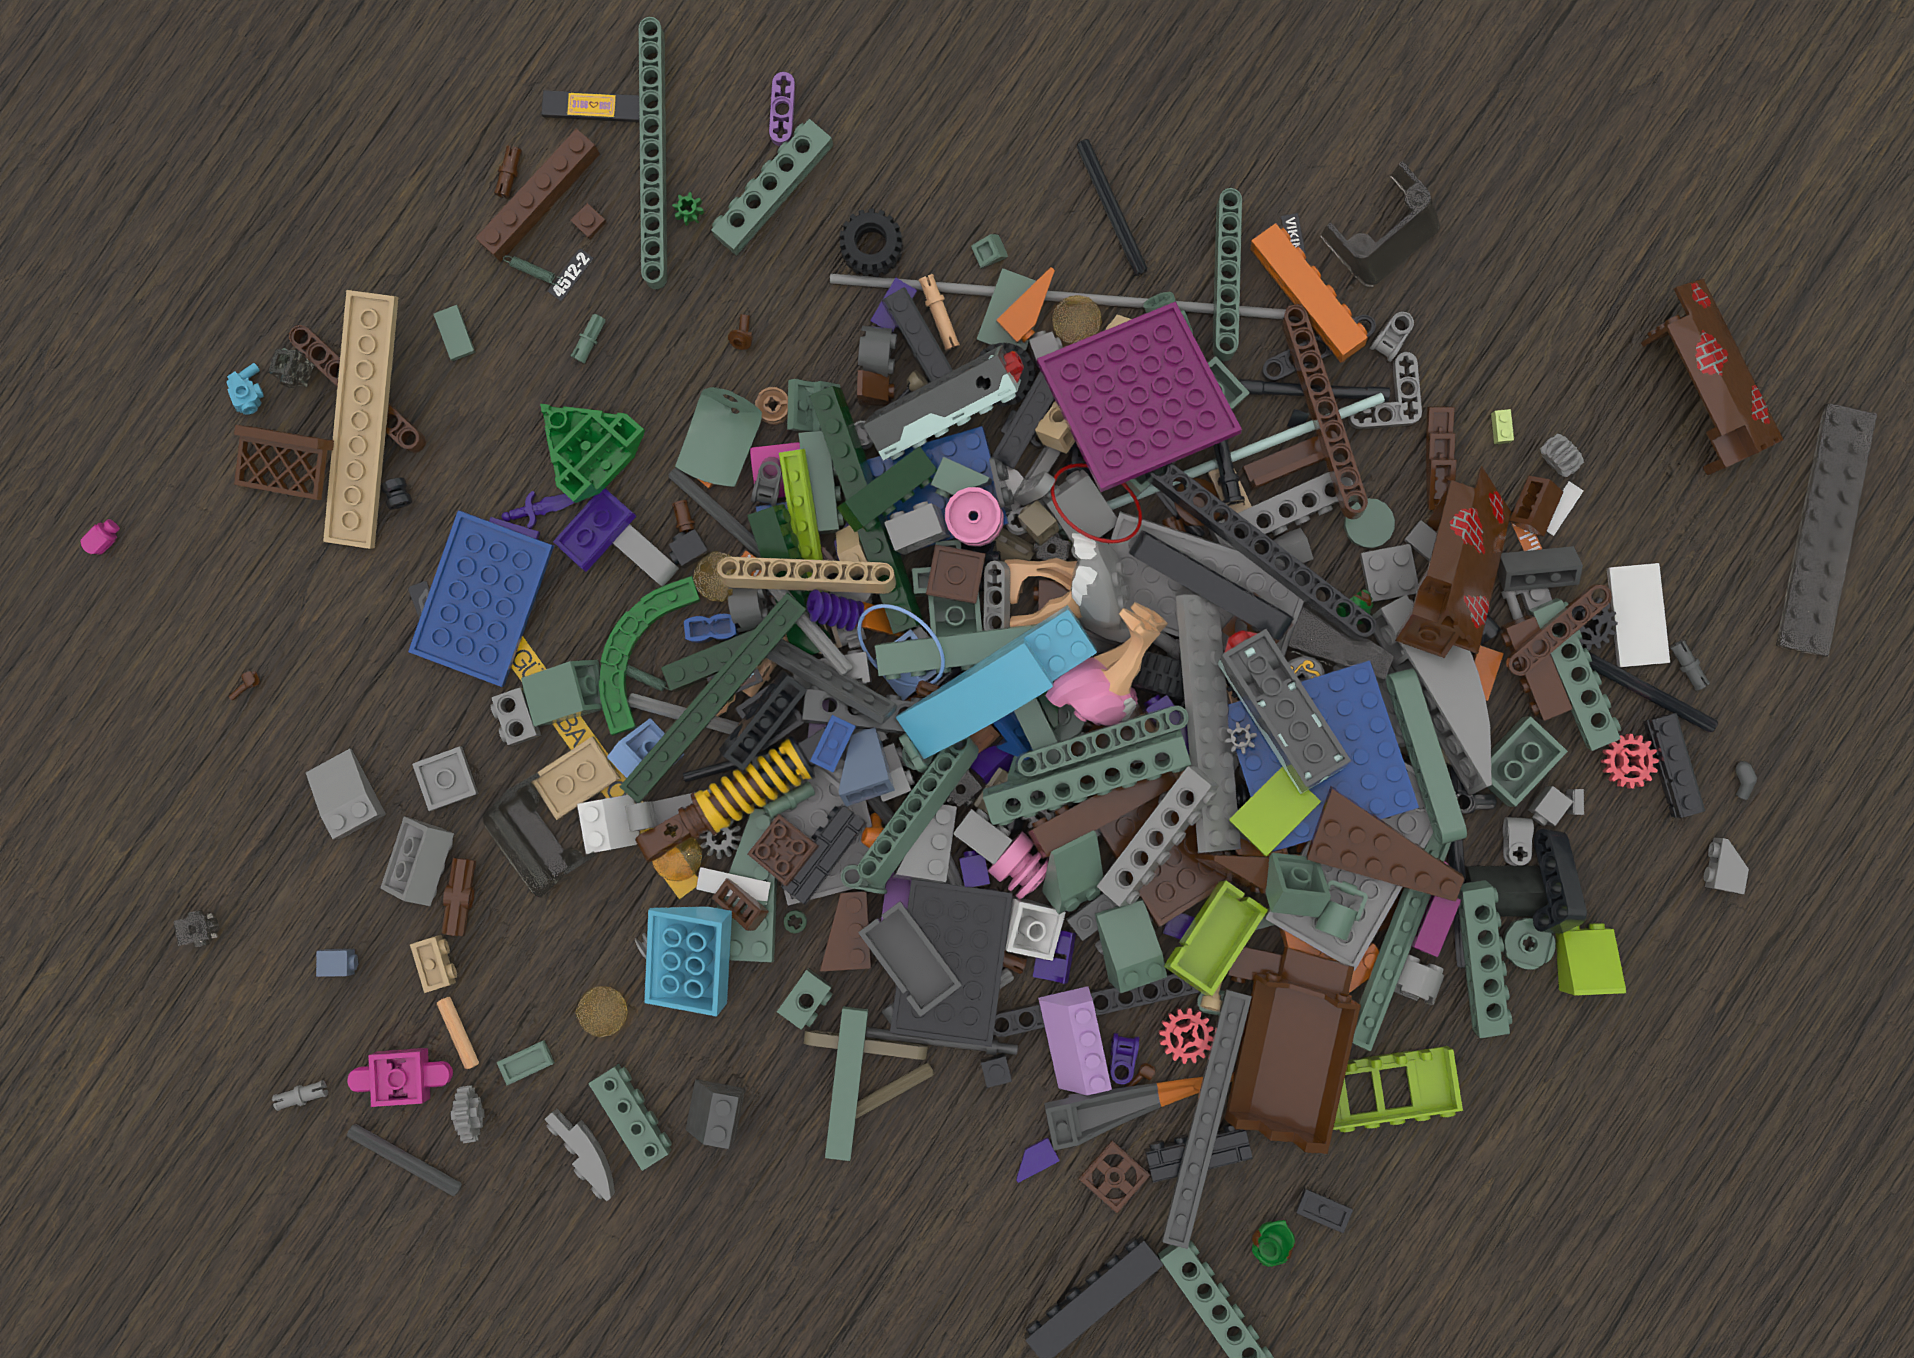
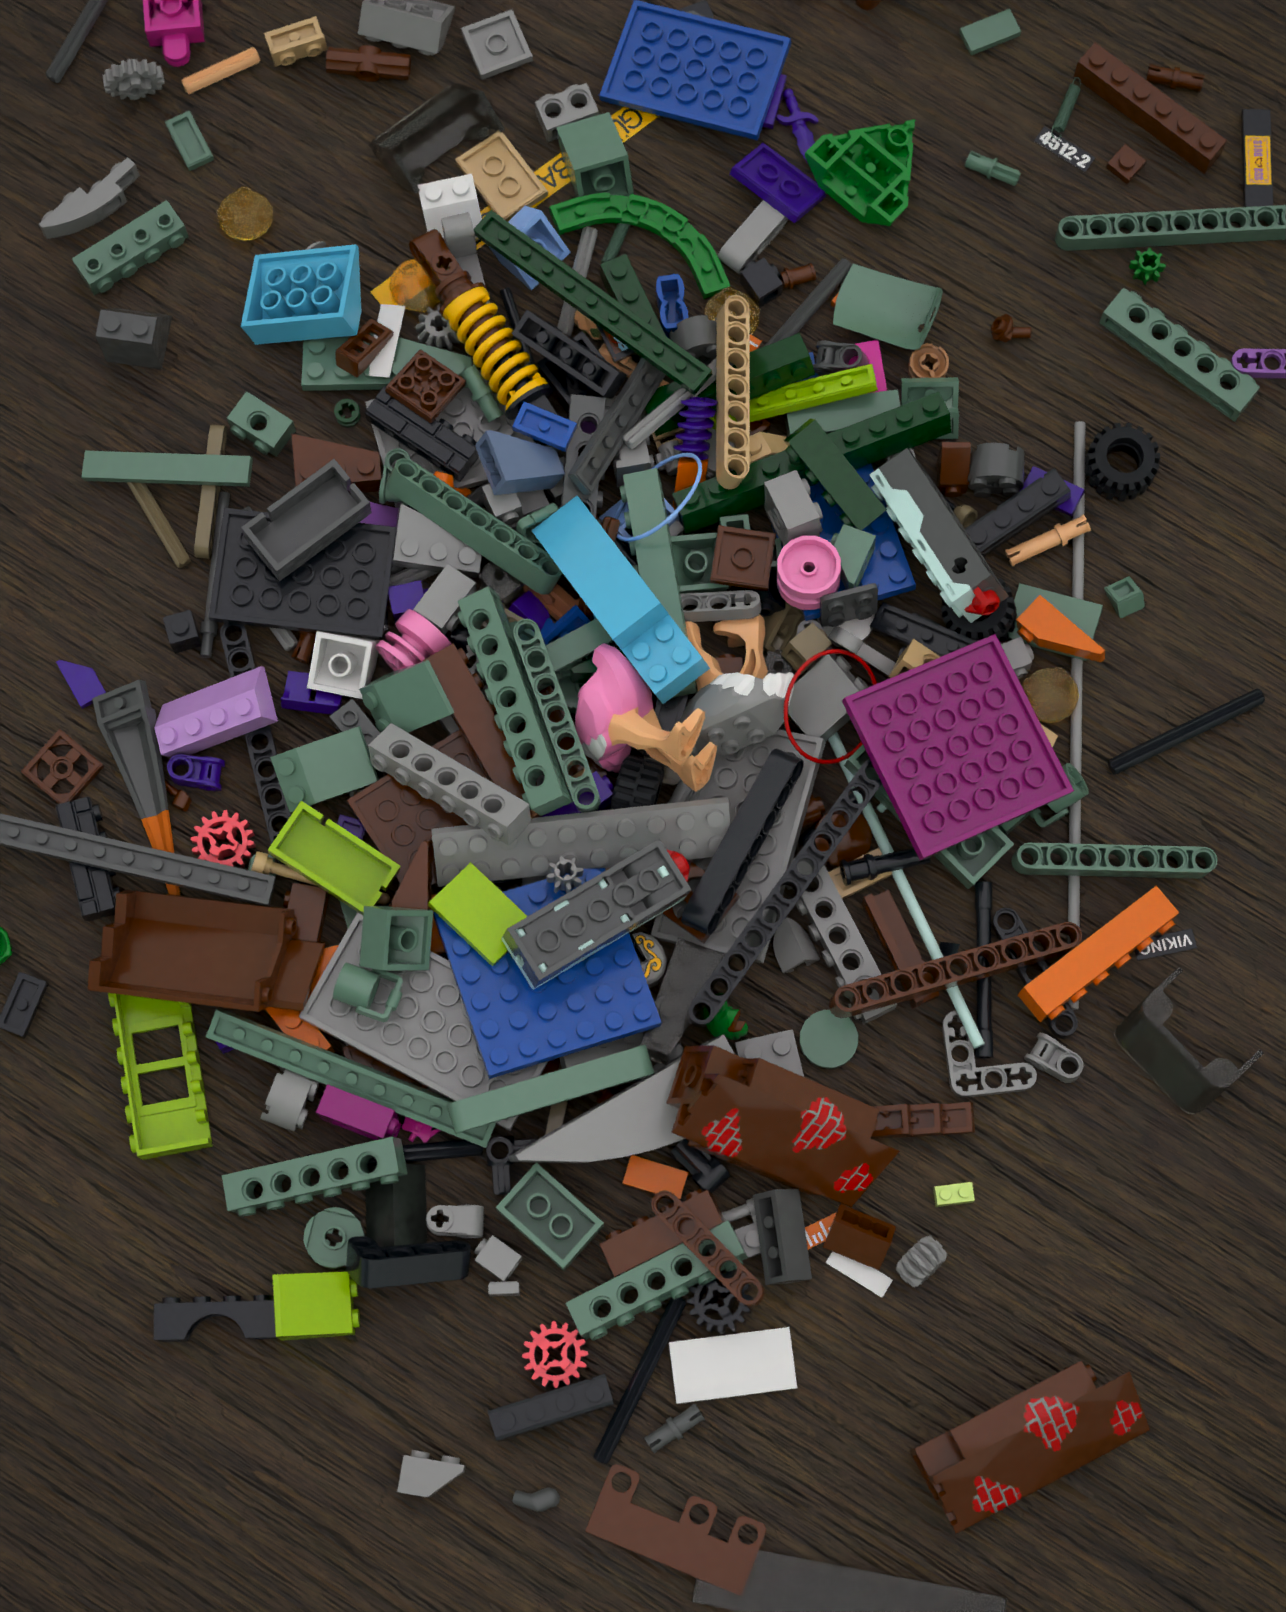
camera: 85 degrees right, 10 degrees down
(1367, 846) = (440, 1025): reddish brown wing -> none
(1593, 1075) = (177, 1320): none -> black arch
(1782, 670) = (675, 1544): none -> reddish brown piece

